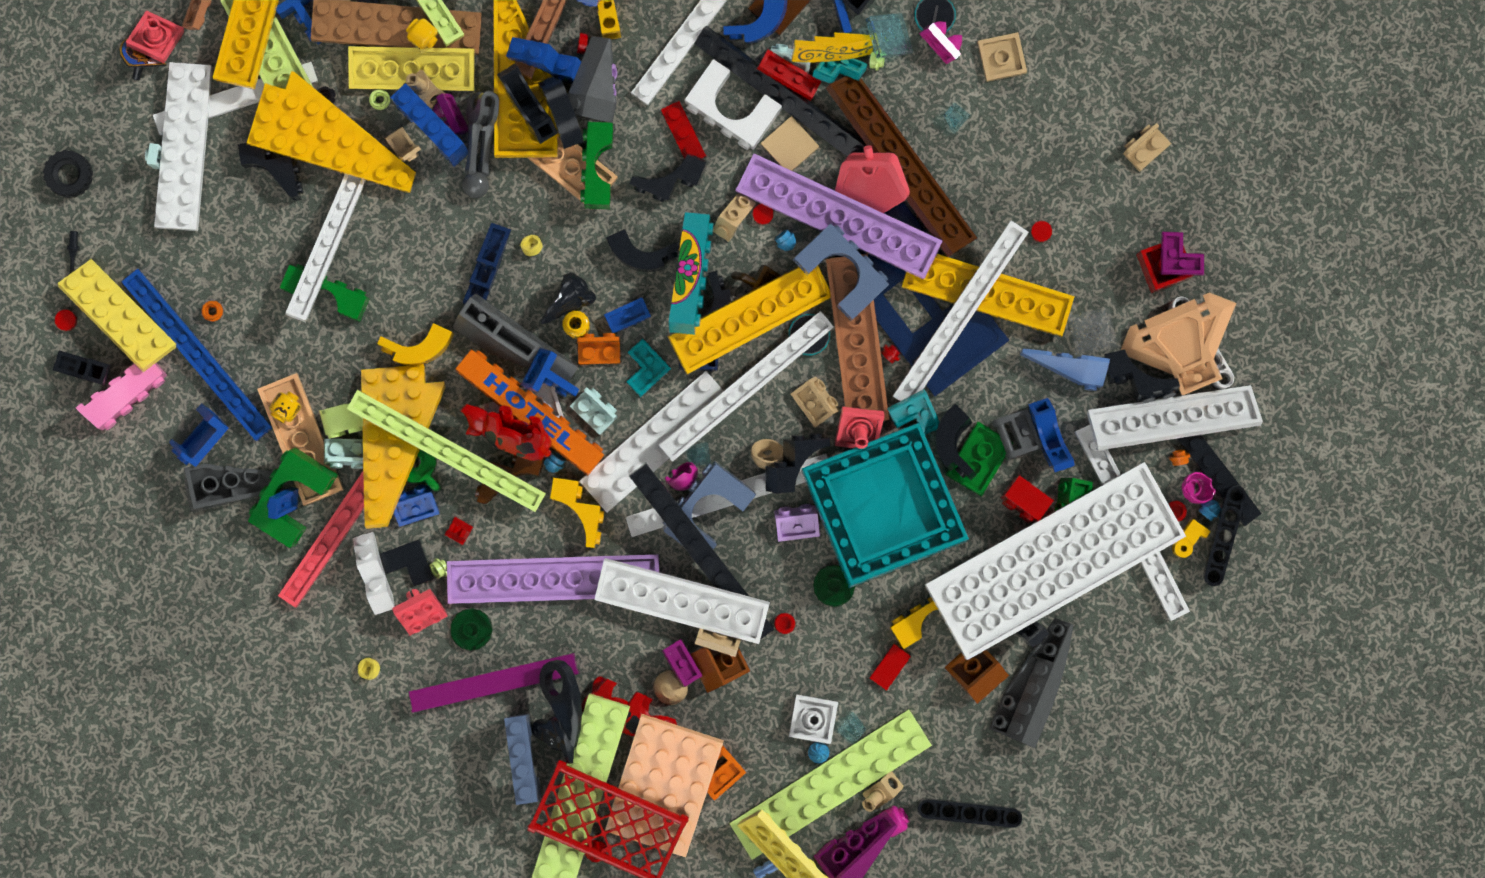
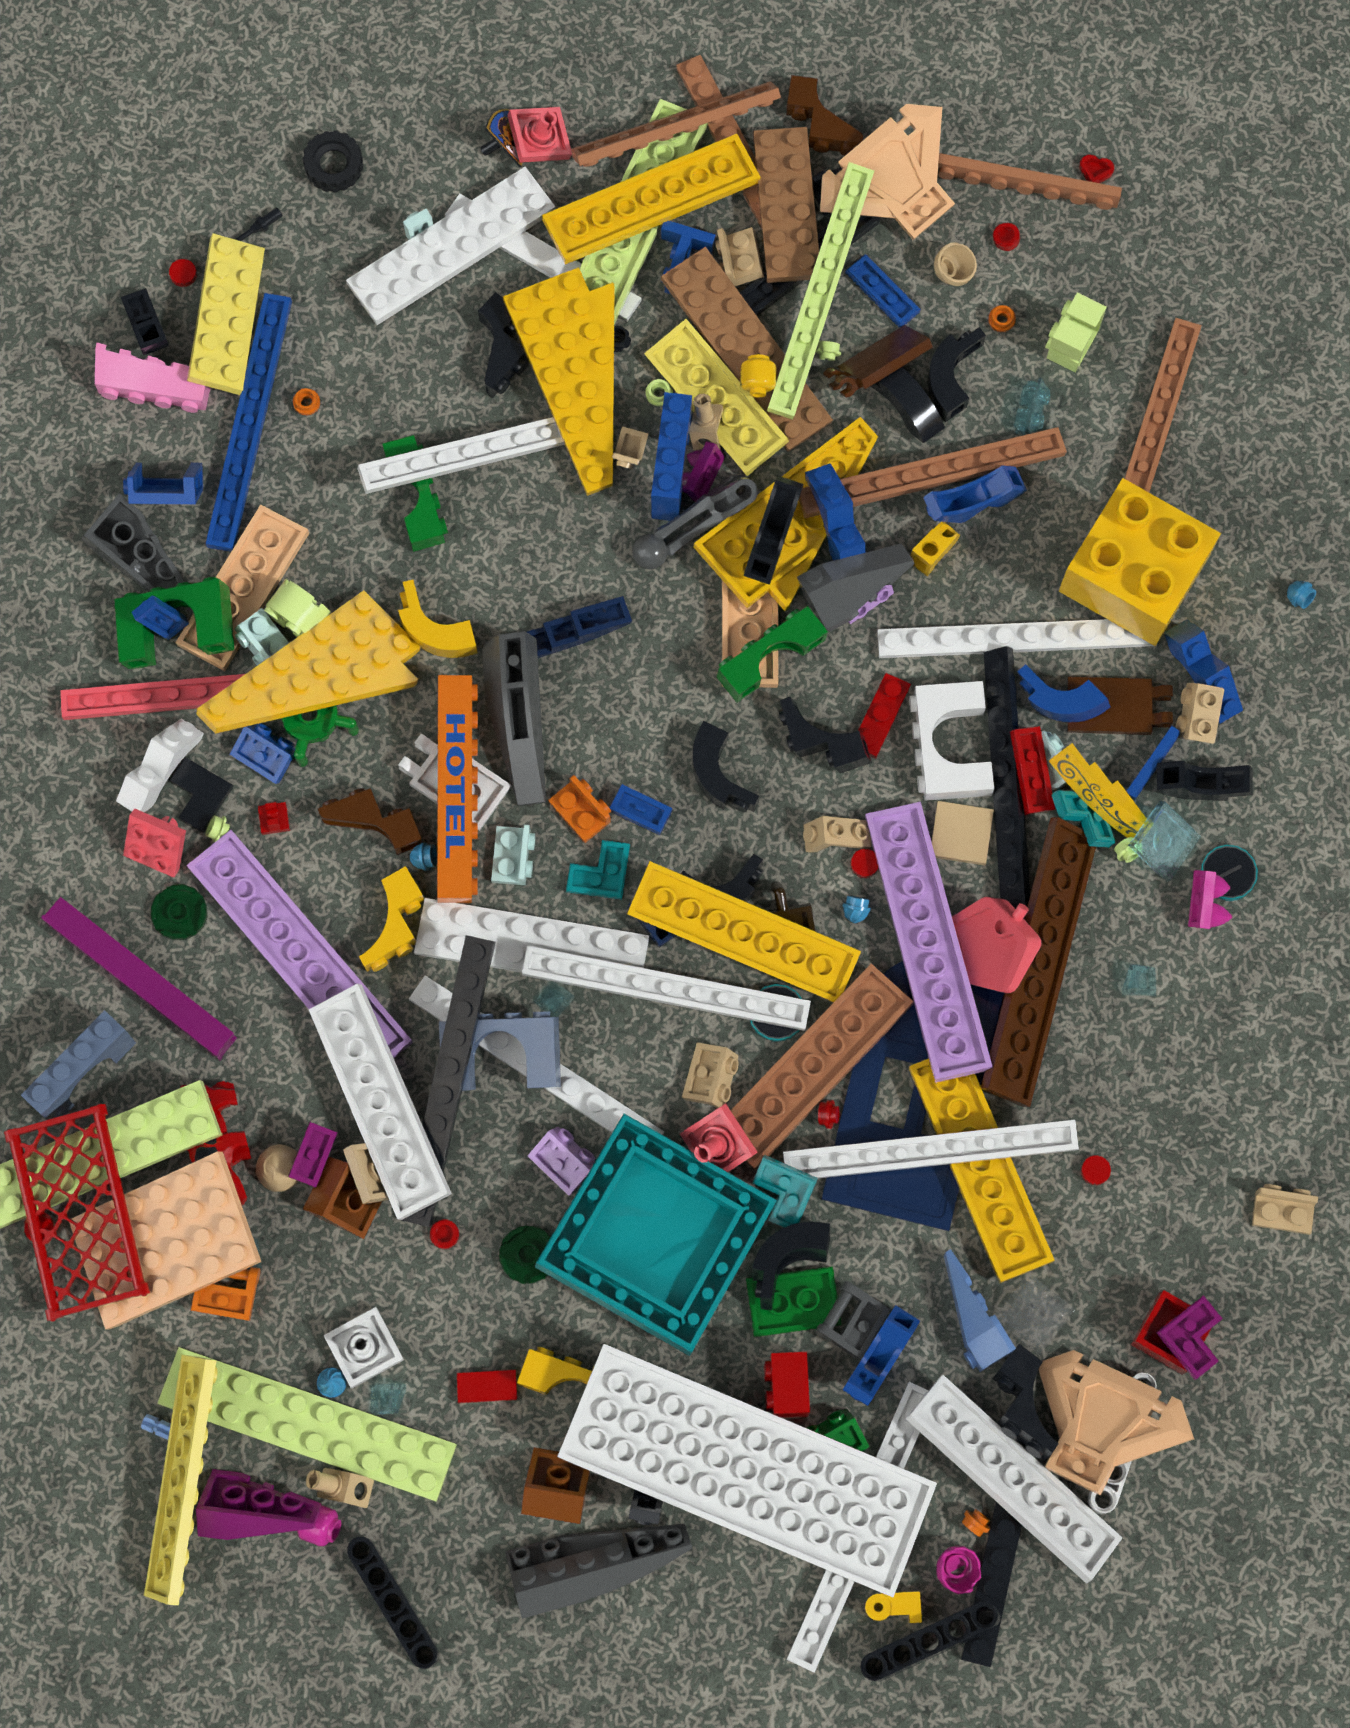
camera: 55 degrees right, 10 degrees down
(284, 407) = (262, 543): yellow head -> none
(368, 668) = (54, 840): light yellow tile -> none
(446, 450) = (344, 734): yellowish green plate -> none
(507, 433) = (413, 782): red animal -> none
(531, 245) = (633, 656): light yellow tile -> none
(540, 373) = (503, 763): blue bracket -> none
(561, 111) = (793, 571): black arch -> none
(562, 729) = (142, 1083): black animal -> none
(570, 297) = (609, 733): black hair -> none
(571, 319) = (588, 755): yellow head -> none
(582, 43) = (886, 540): red tile -> none
(685, 479) = (511, 1002): dark pink hair -> none
(689, 273) = (735, 833): brick -> none
(763, 460) = (602, 1071): tan piece -> none
(796, 450) = (601, 1099): black arch -> none
(869, 281) = (890, 952): sand blue arch -> none
(1002, 57) = (1246, 978): tan tile -> none
(1178, 510) = (916, 1568): red tile -> none
(1210, 509) = (946, 1603): dark azure plate -> none

